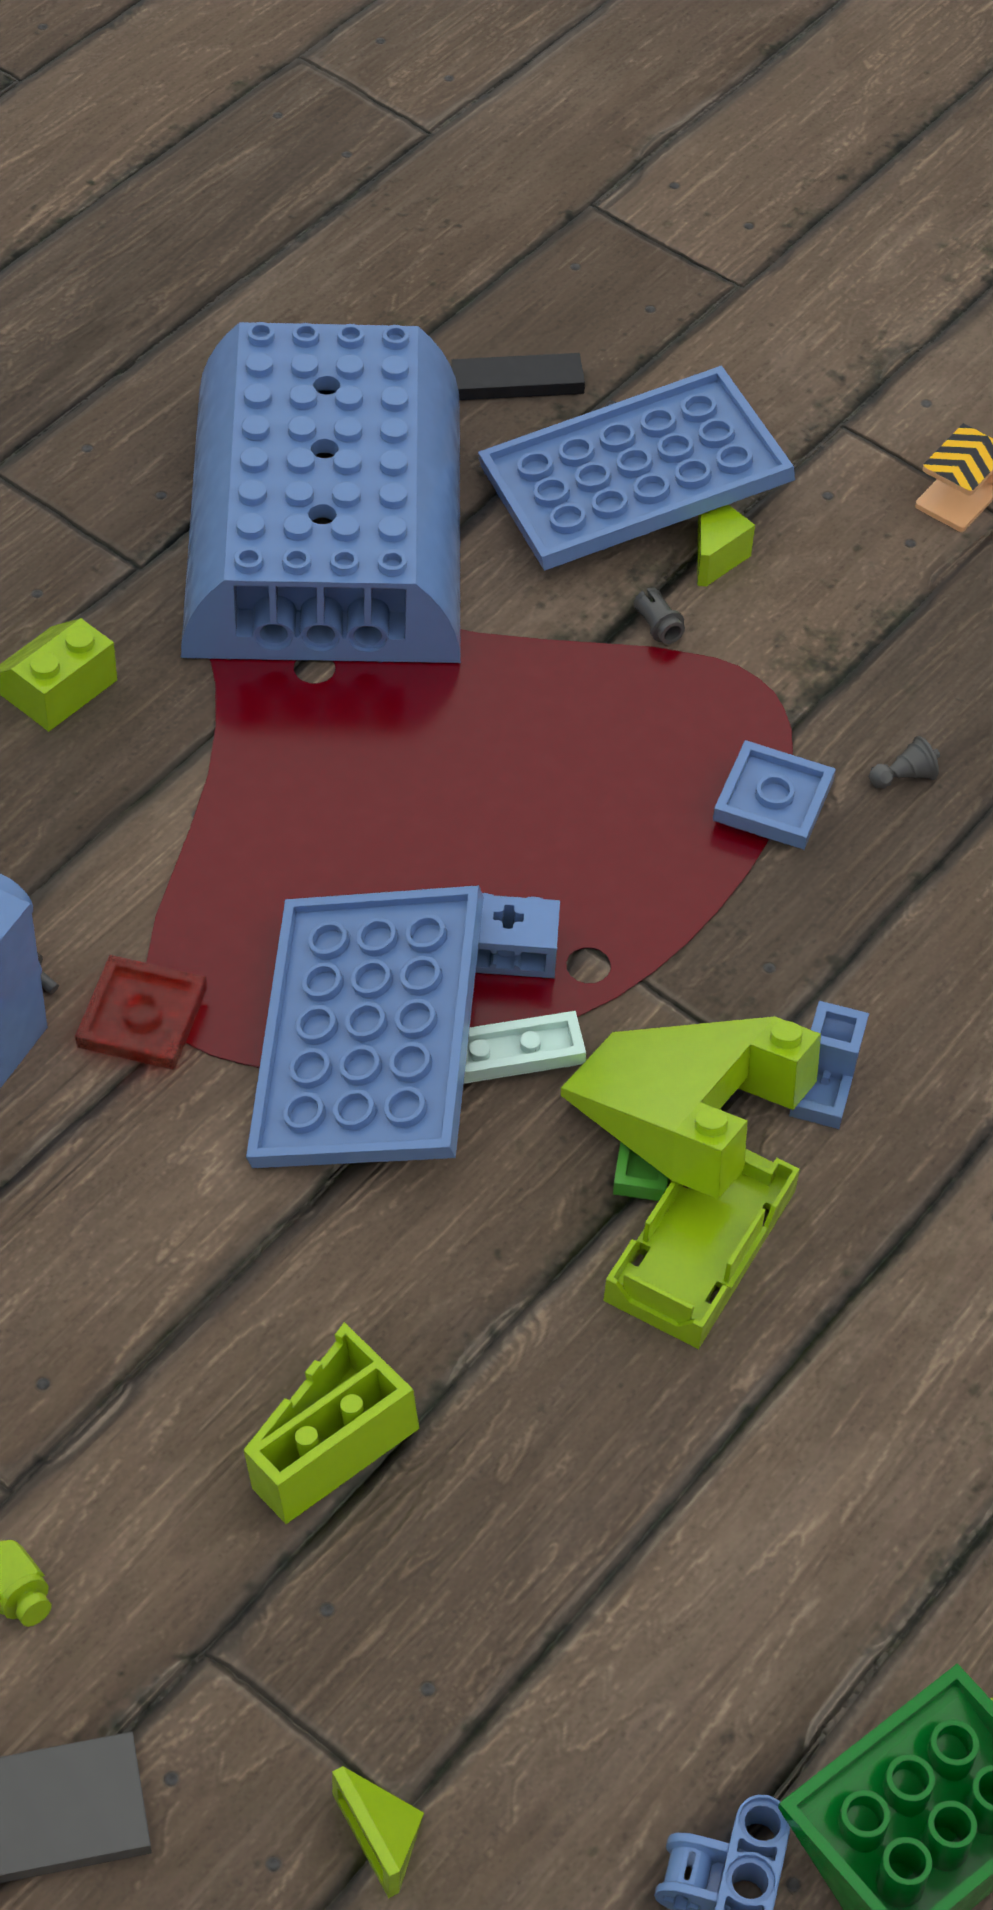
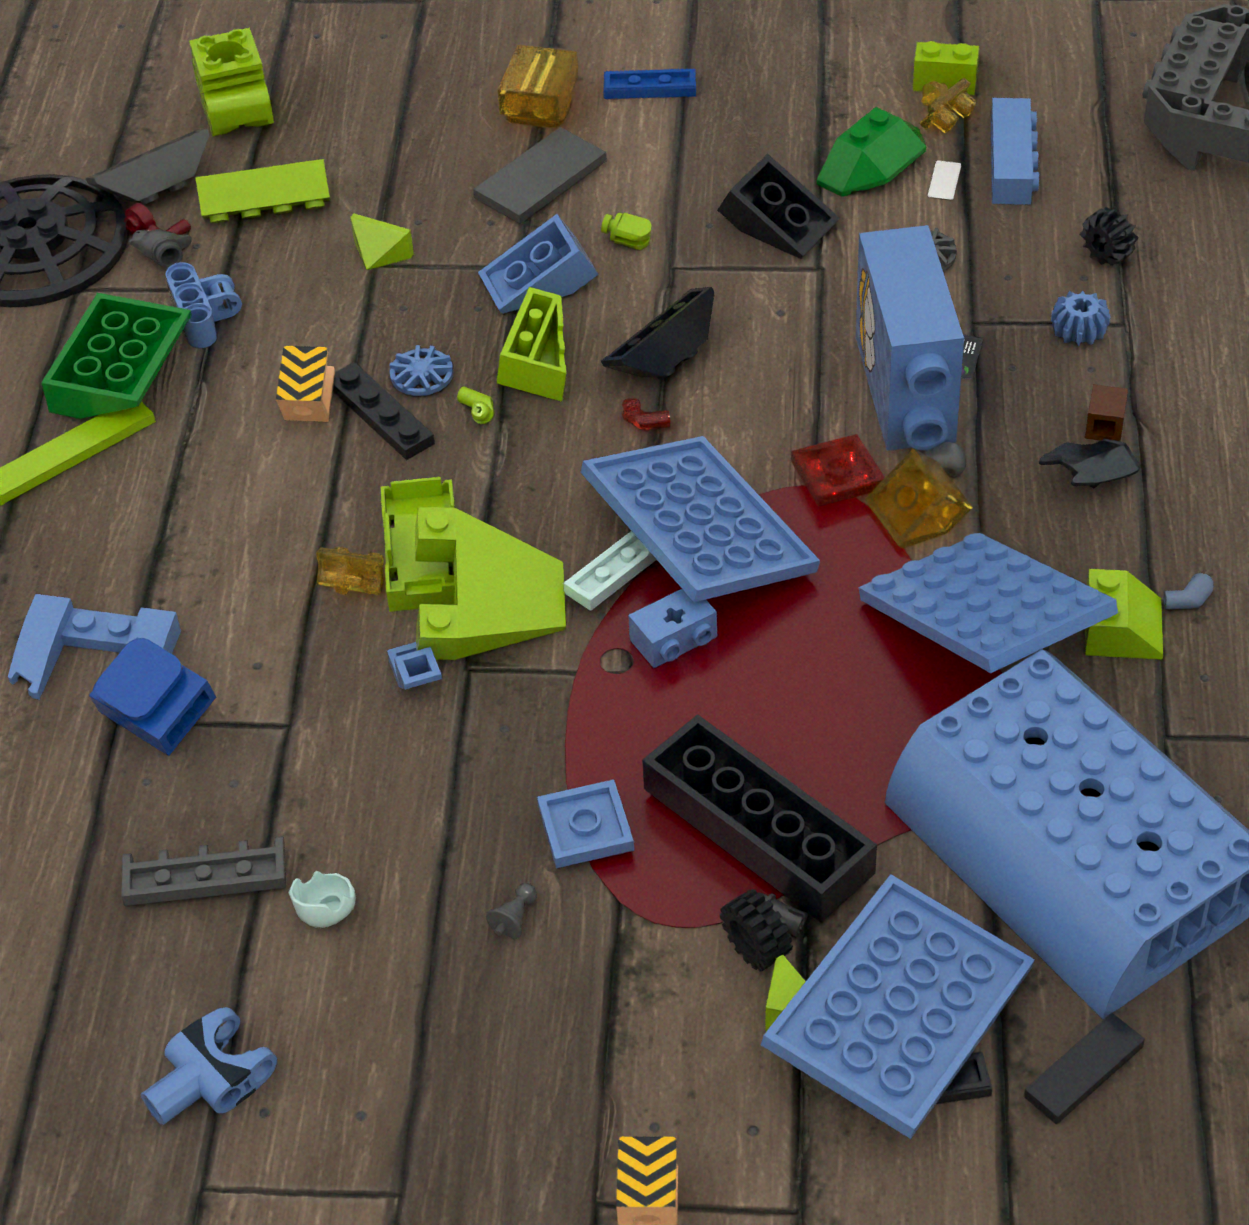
camera: 150 degrees right, 5 degrees down
(101, 908) = (918, 500): none -> clear yellow slope
(168, 1333) = (667, 338): none -> black wedge
(189, 714) = (987, 601): none -> medium blue plate
(203, 1587) = (543, 260): none -> medium blue slope
(286, 1247) = (641, 419): none -> clear red arm
(466, 1408) = (481, 404): none -> lime arm
(496, 1532) = (421, 371): none -> medium blue wheel
(600, 1502) = (381, 411): none -> black plate
(611, 684) = (760, 817): none -> black brick
(692, 1566) = (305, 384): none -> piece
(704, 590) = (755, 929): none -> black tyre
(830, 1265) = (350, 571): none -> clear yellow hips

